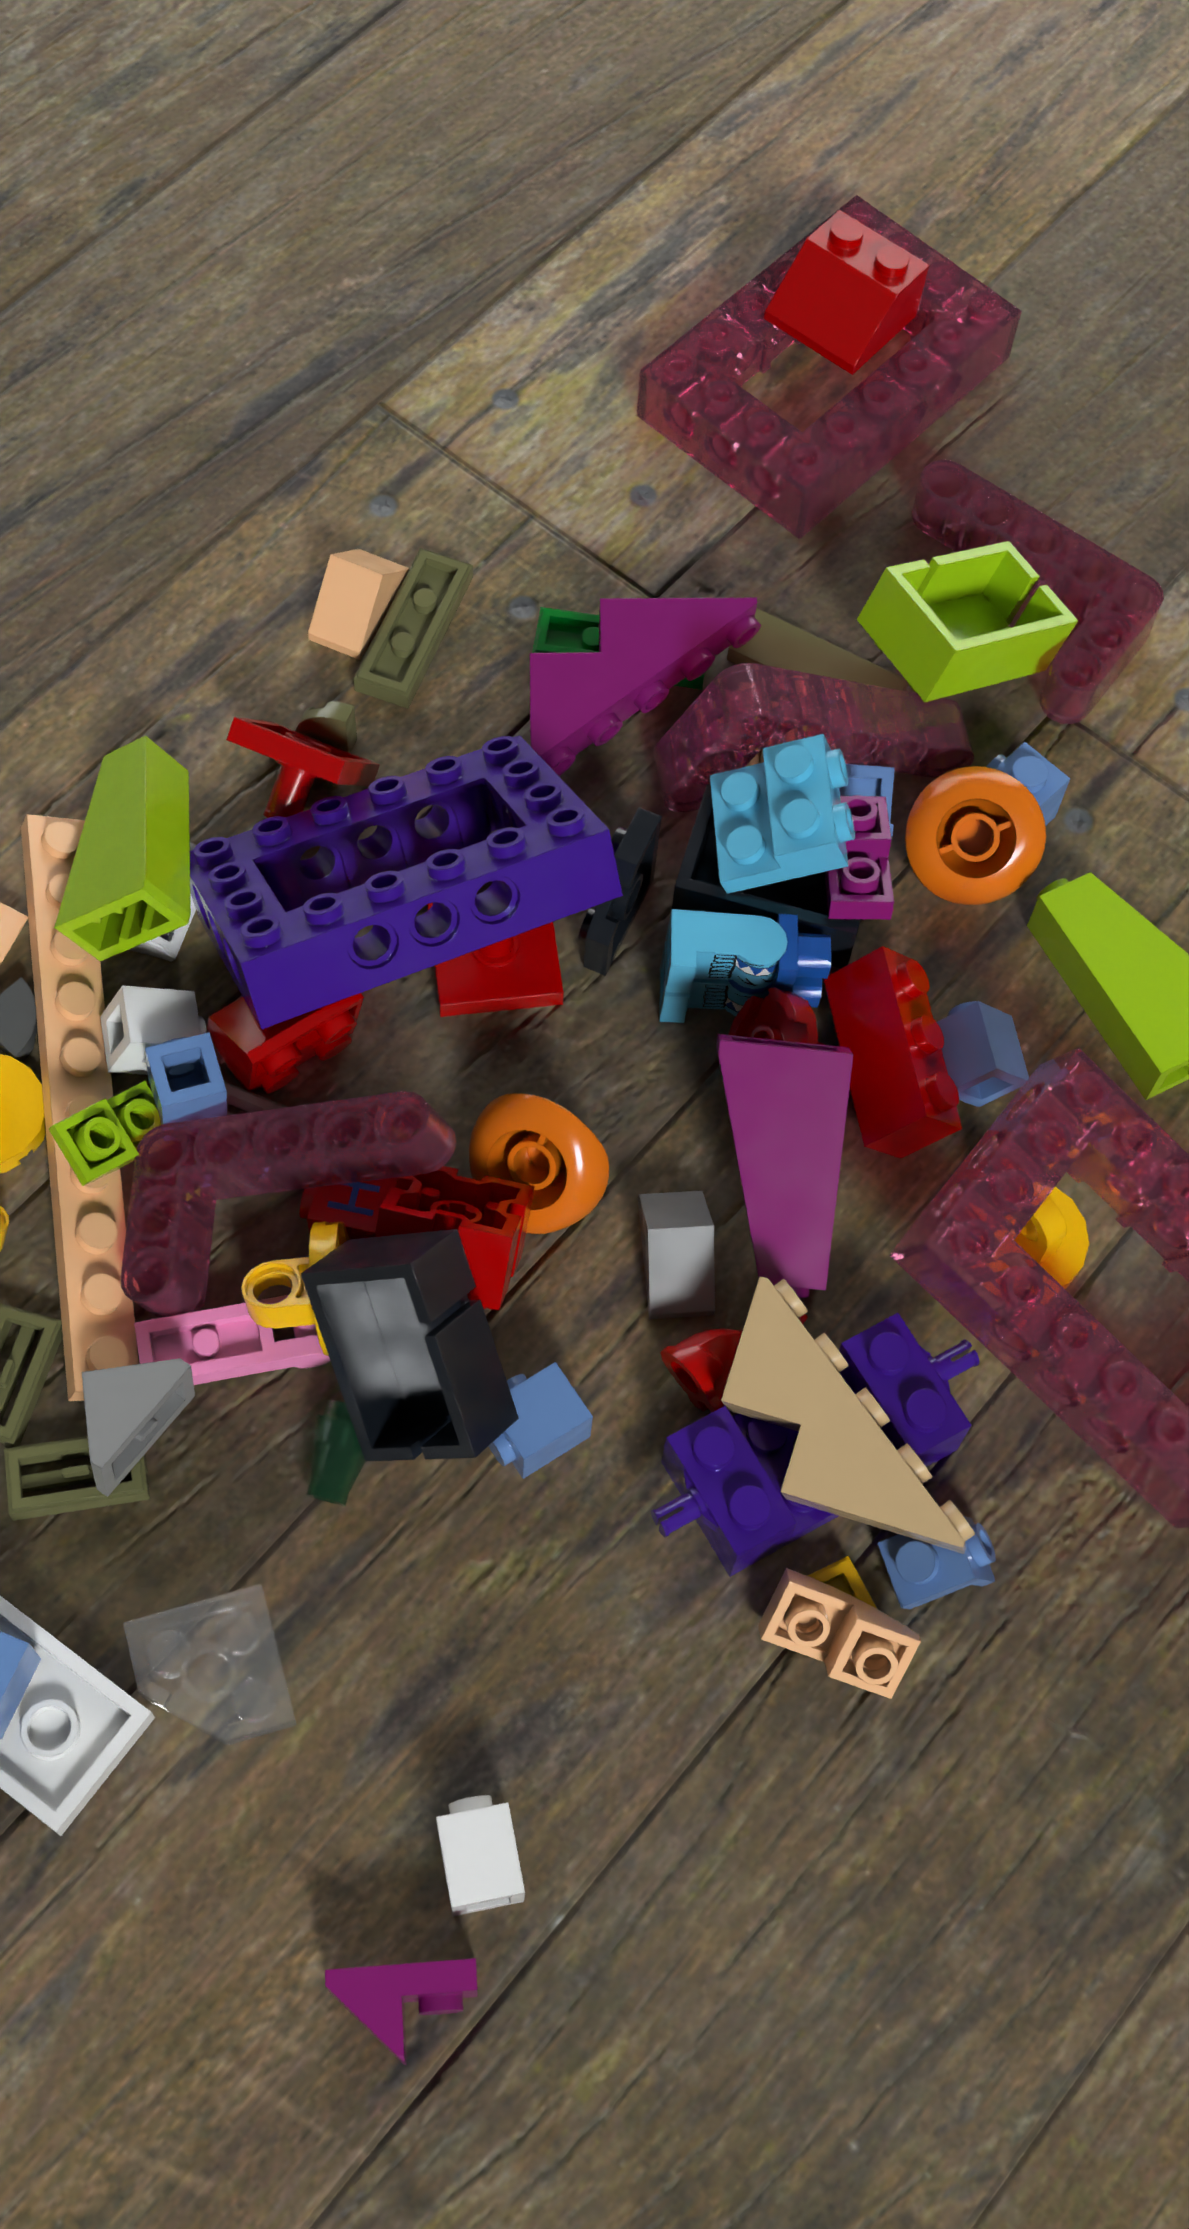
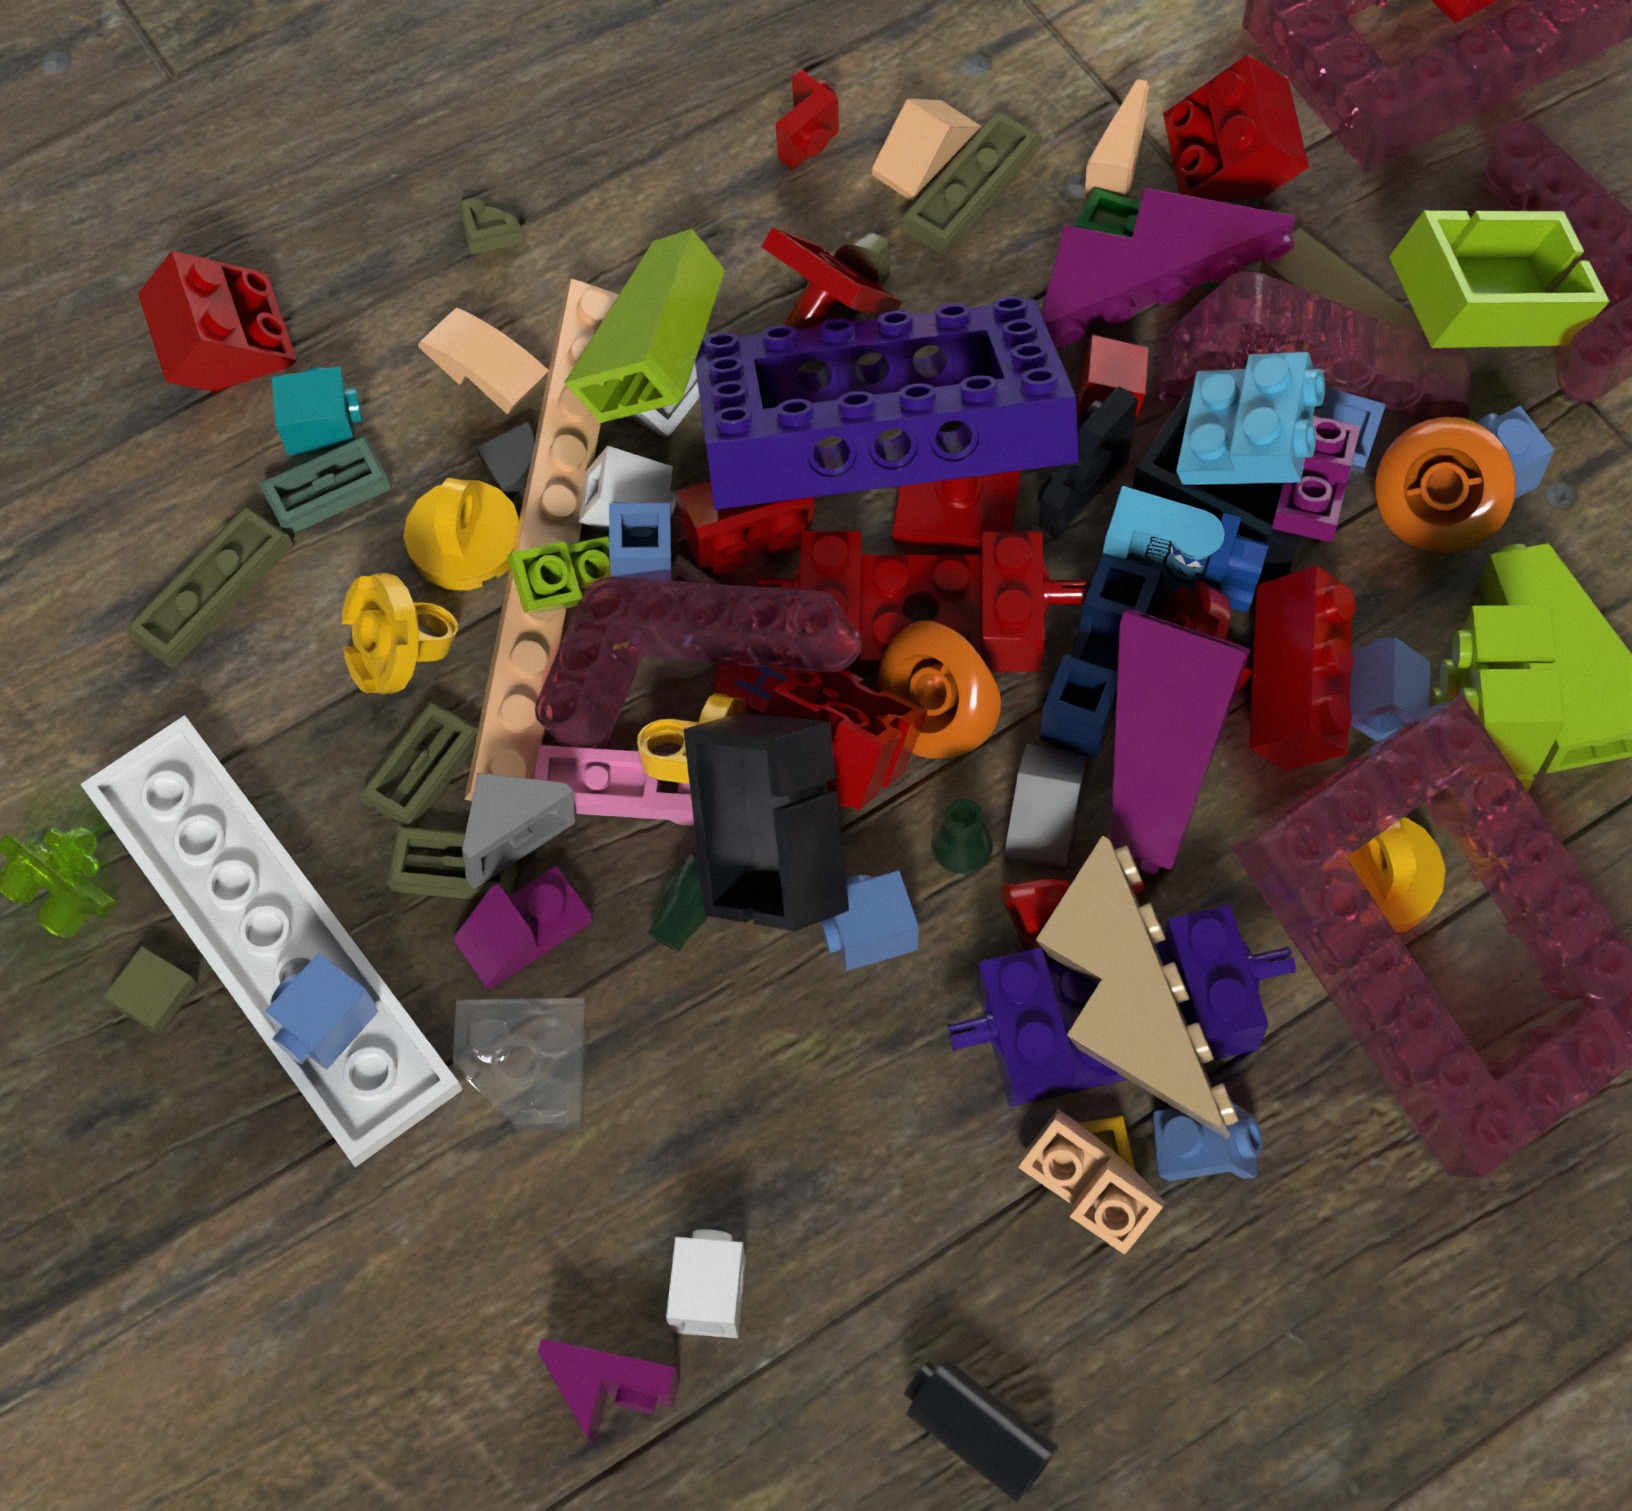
camera: 25 degrees right, 0 degrees up
(167, 1524) = (518, 929): none -> magenta slope
(233, 597) = (810, 123): none -> red bracket
(555, 570) = (1116, 155): none -> light nougat slope
(560, 1052) = (986, 598): none -> red brick
(605, 1311) = (962, 838): none -> clear green cone
(617, 789) = (1106, 367): none -> red brick
(666, 527) = (1236, 135): none -> red slope
(690, 1088) = (1086, 682): none -> dark blue arch
(803, 1926) = (979, 1428): none -> black brick
(1126, 1043) = (1490, 670): none -> lime piece

